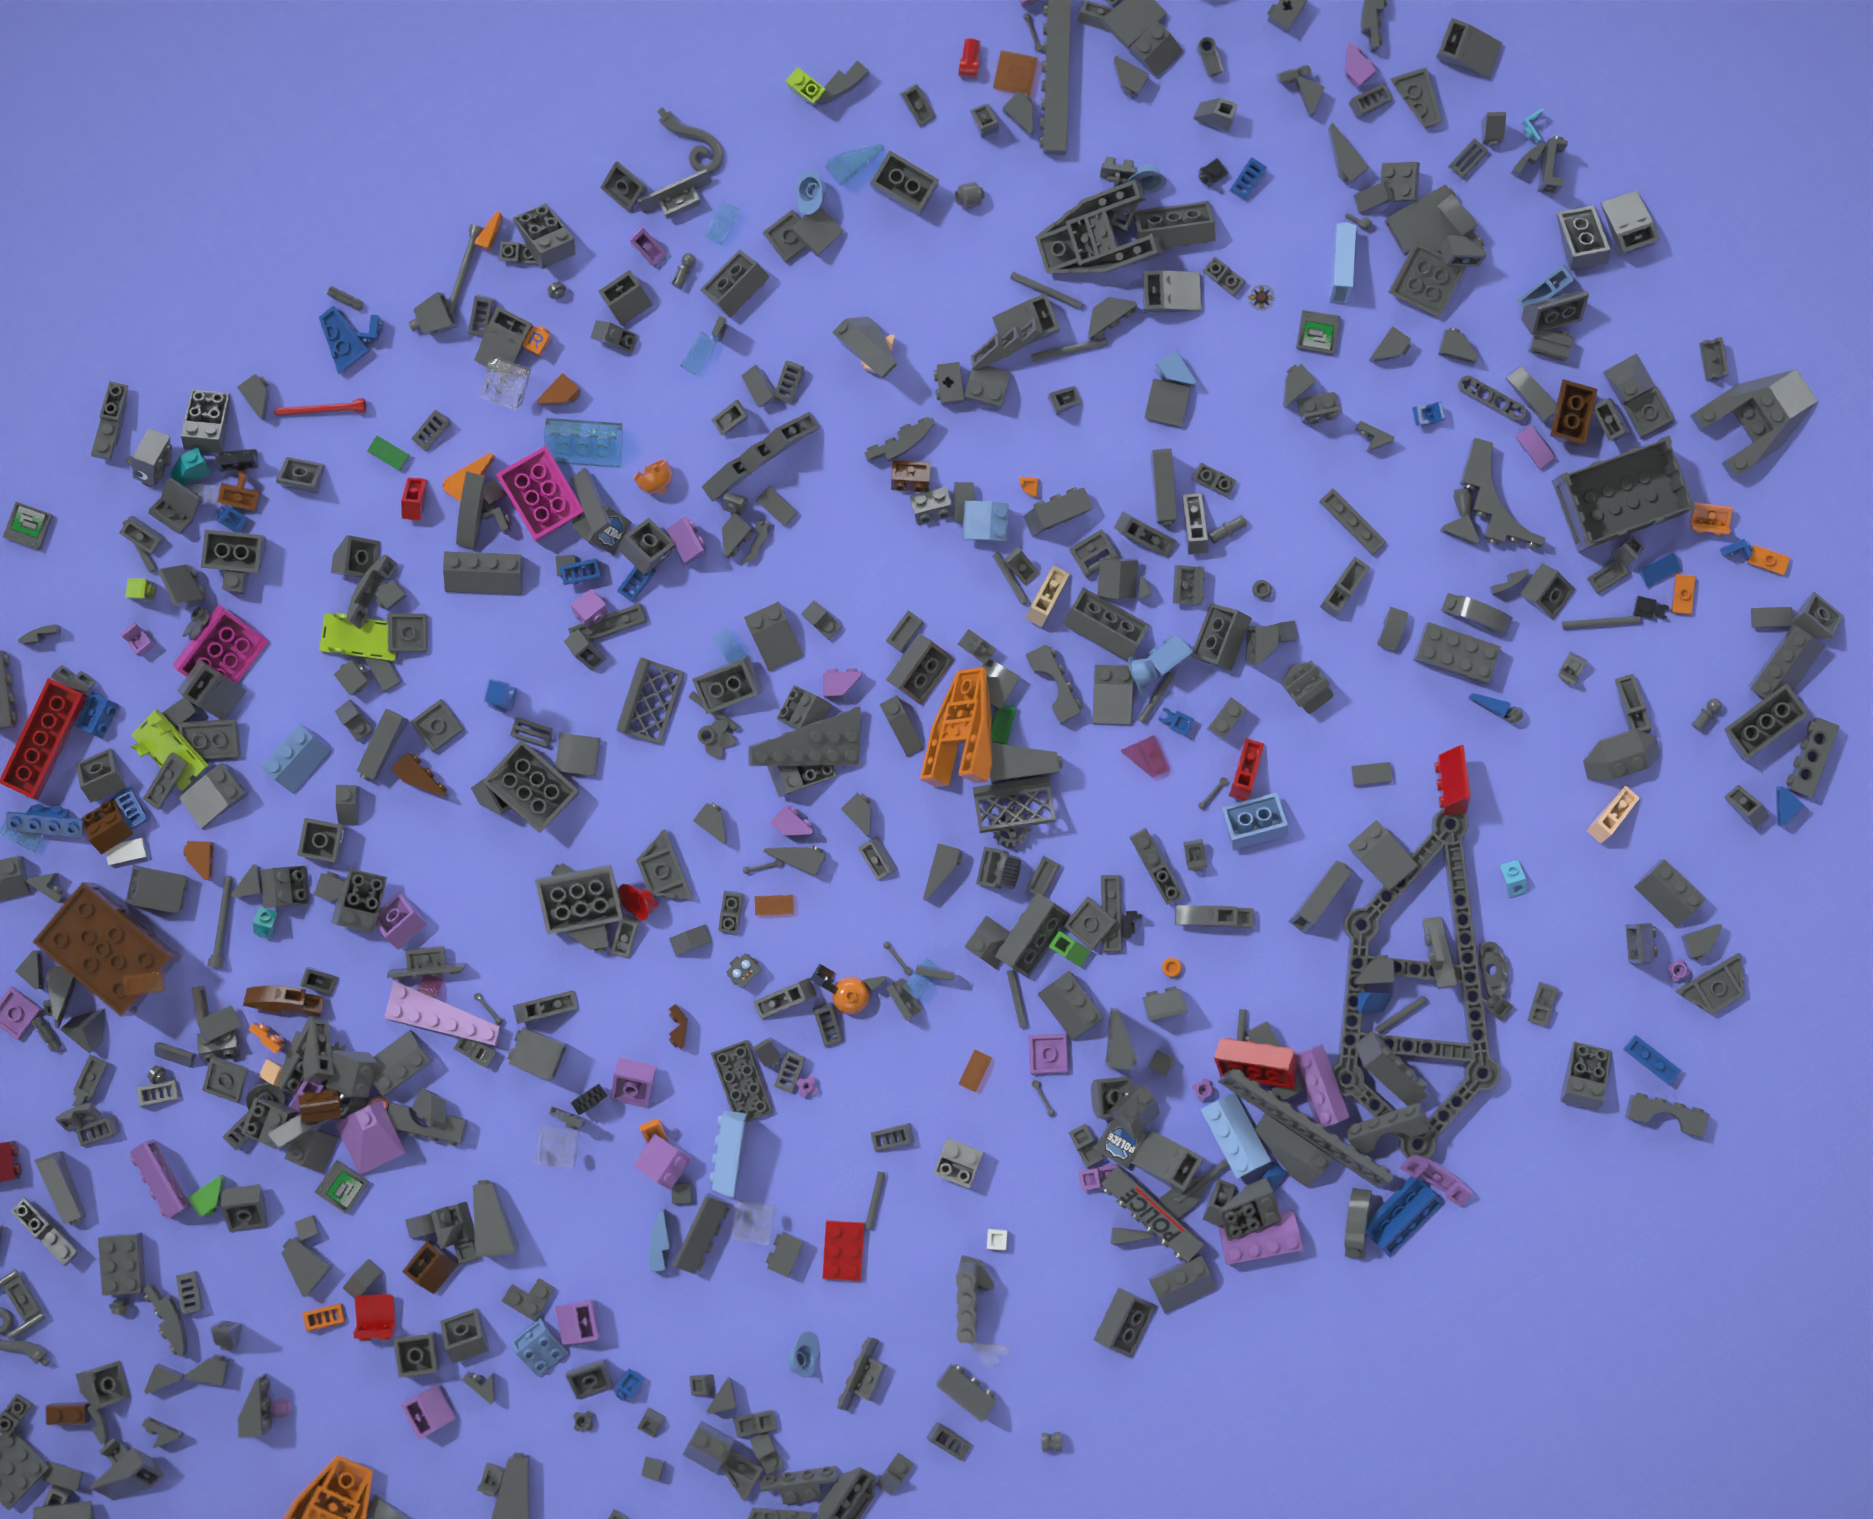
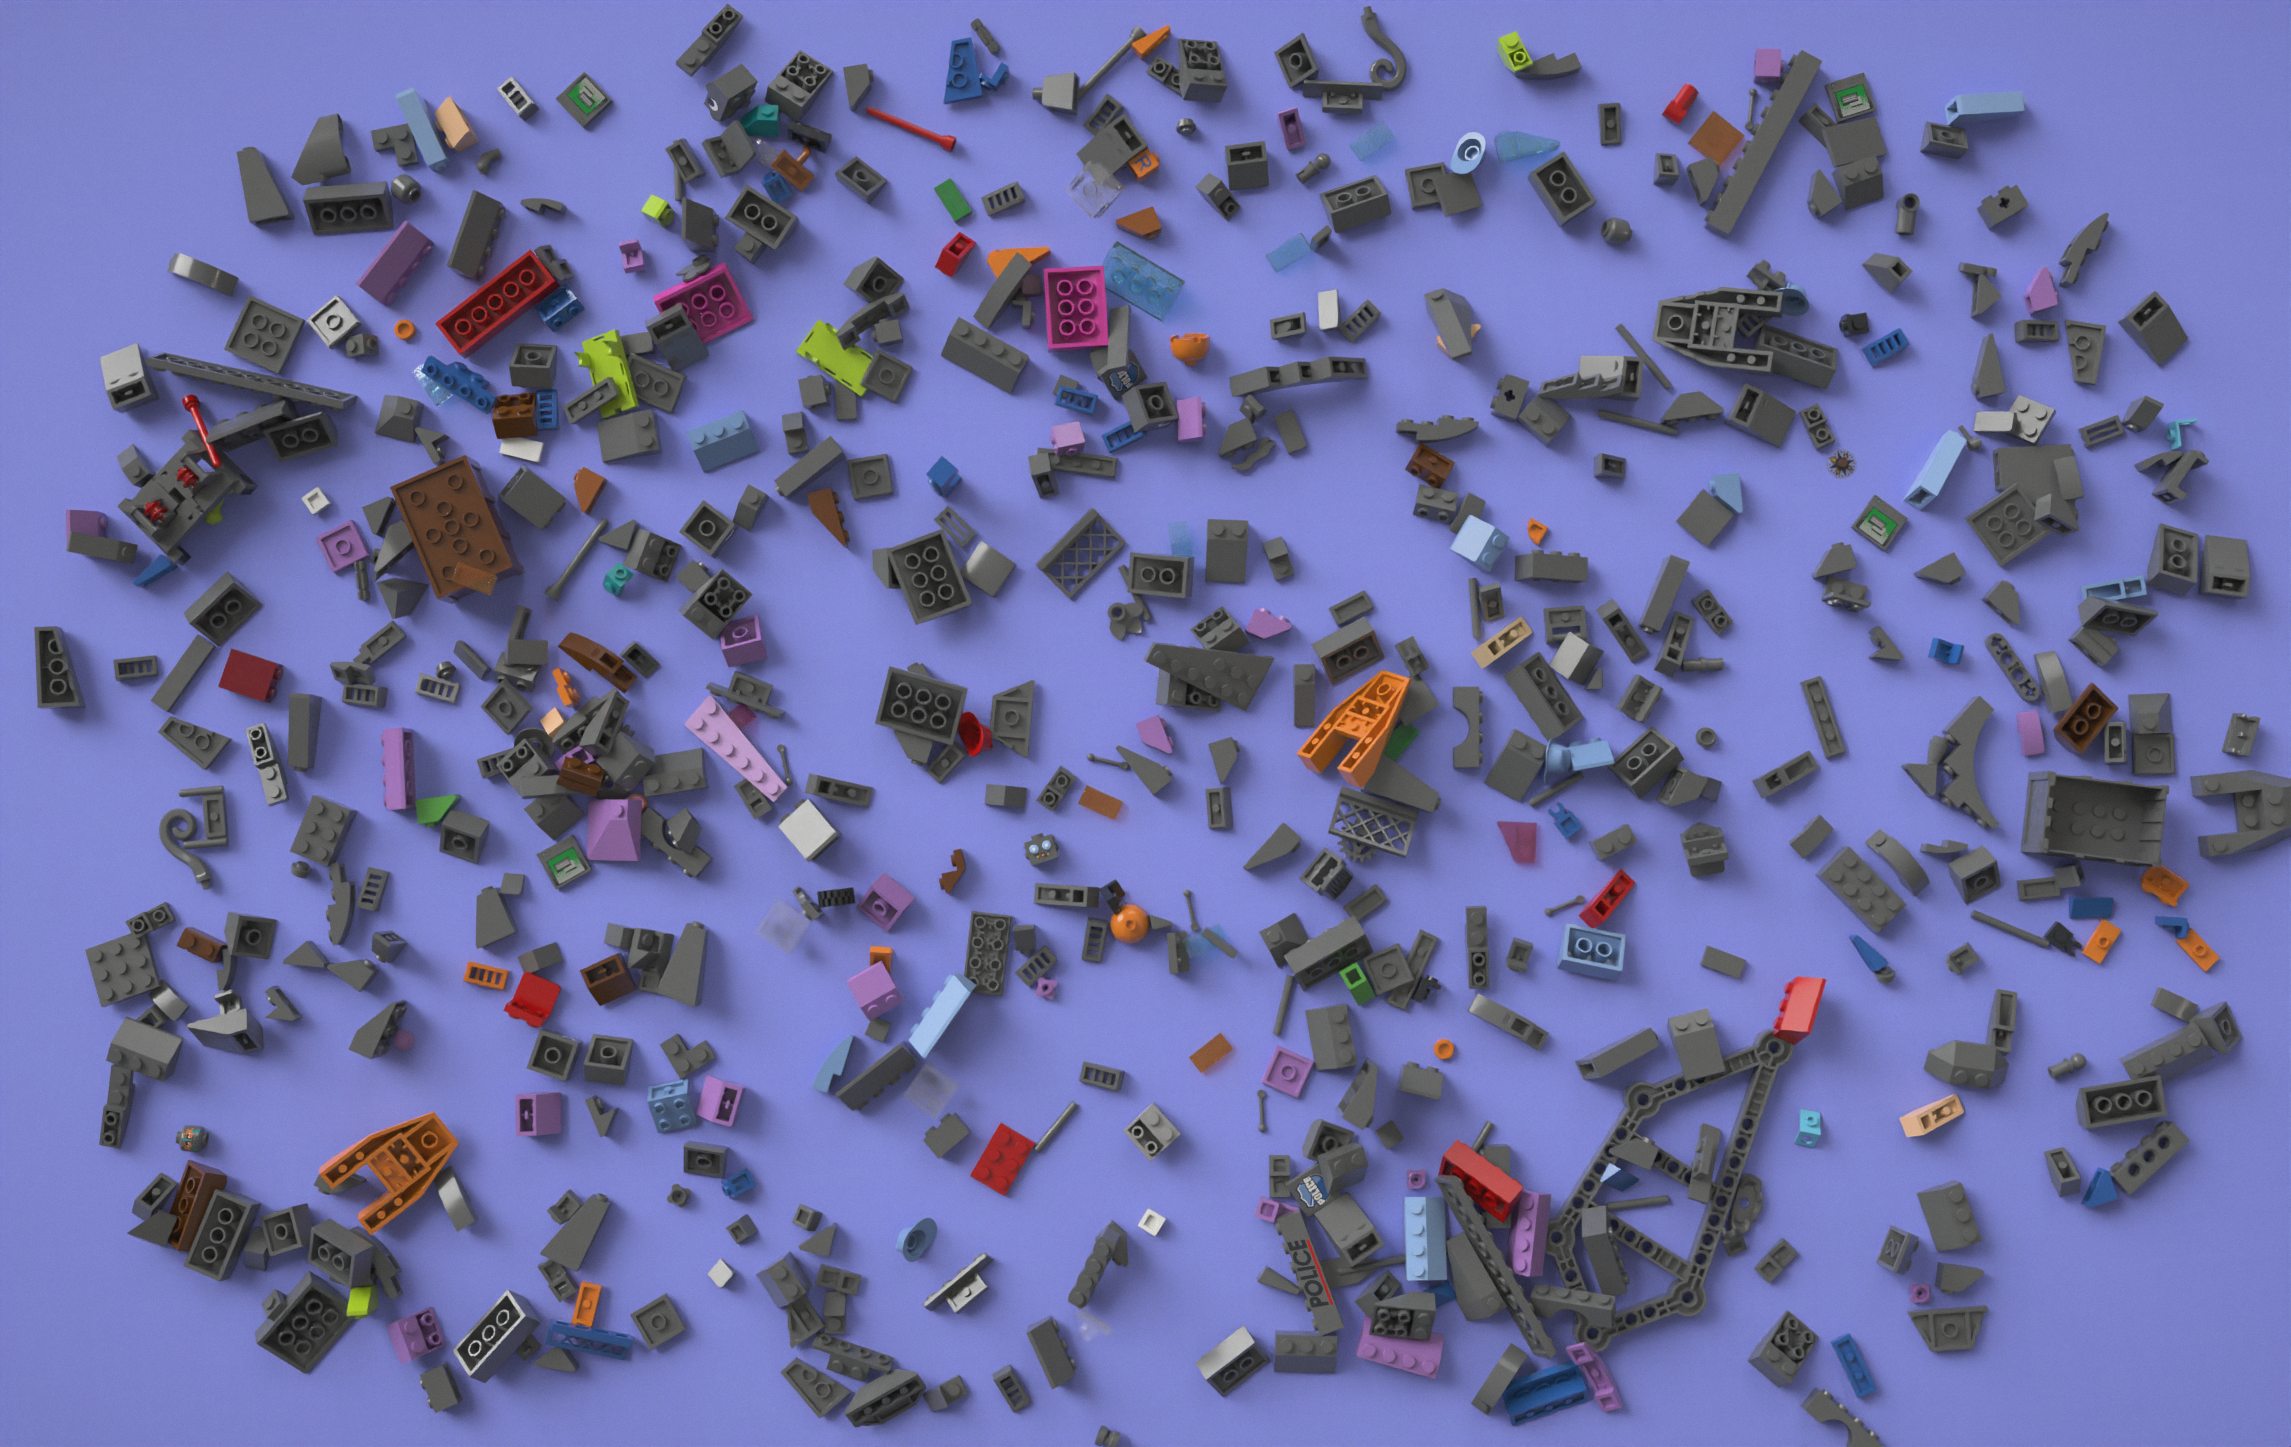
camera: 20 degrees right, 0 degrees up
(712, 821) = (1082, 695): dark grey slope -> none

